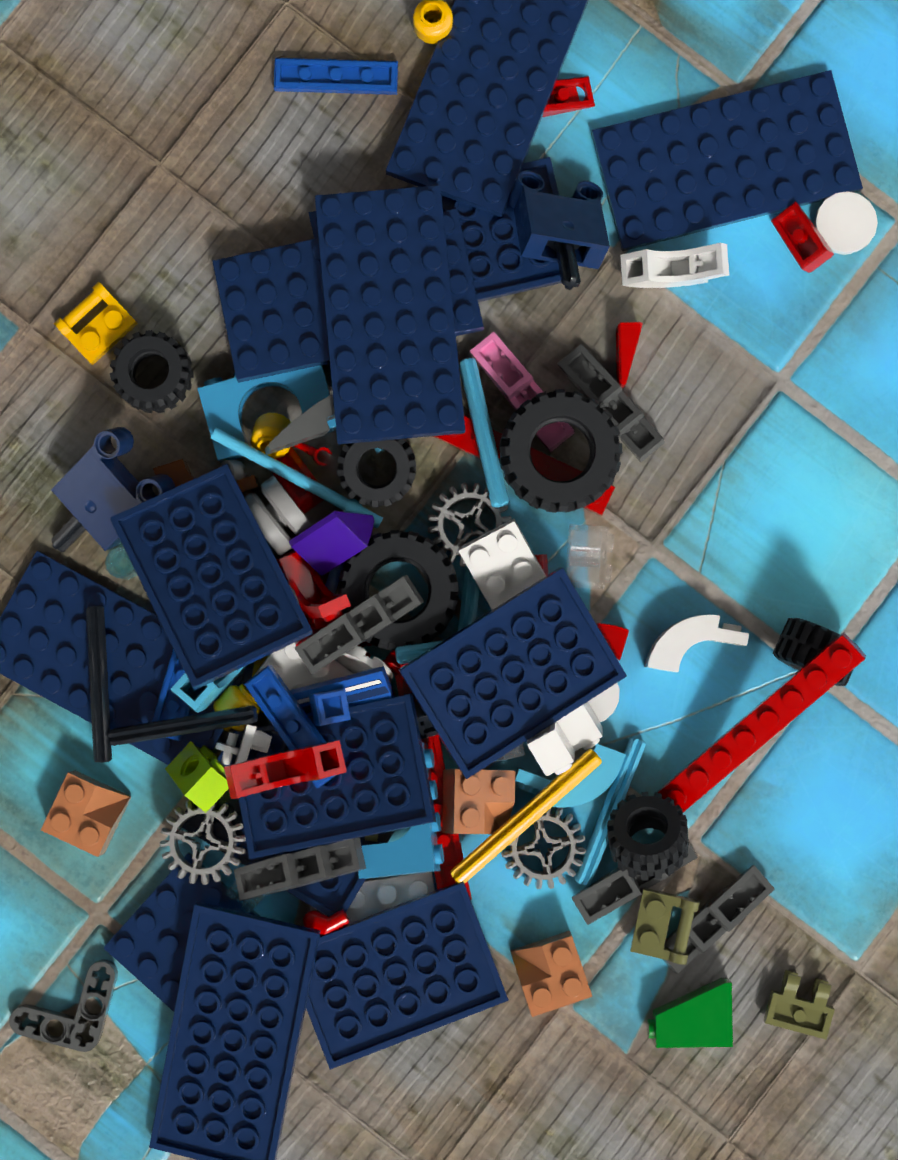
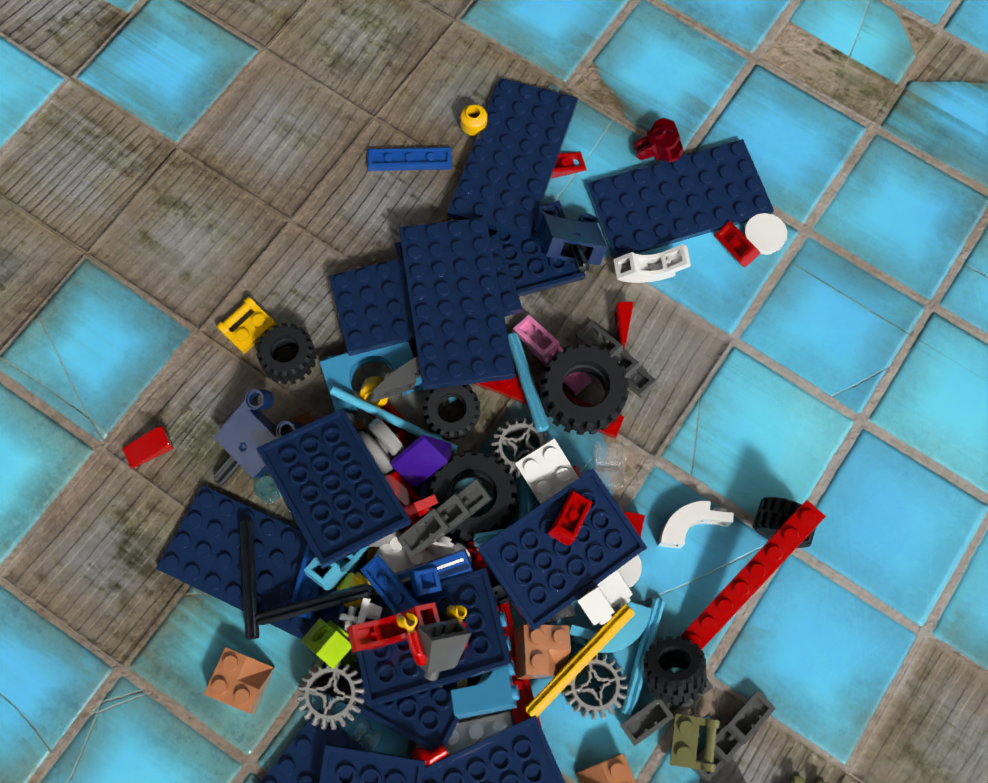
camera: 10 degrees left, 15 degrees down
(299, 869) = (407, 712): dark grey slope -> none
(312, 451) = (404, 404): red hand -> none
(343, 794) = (437, 644): none -> dark grey torso
(526, 635) = (570, 518): none -> red slope
(708, 72) = (661, 142): none -> dark red hinge

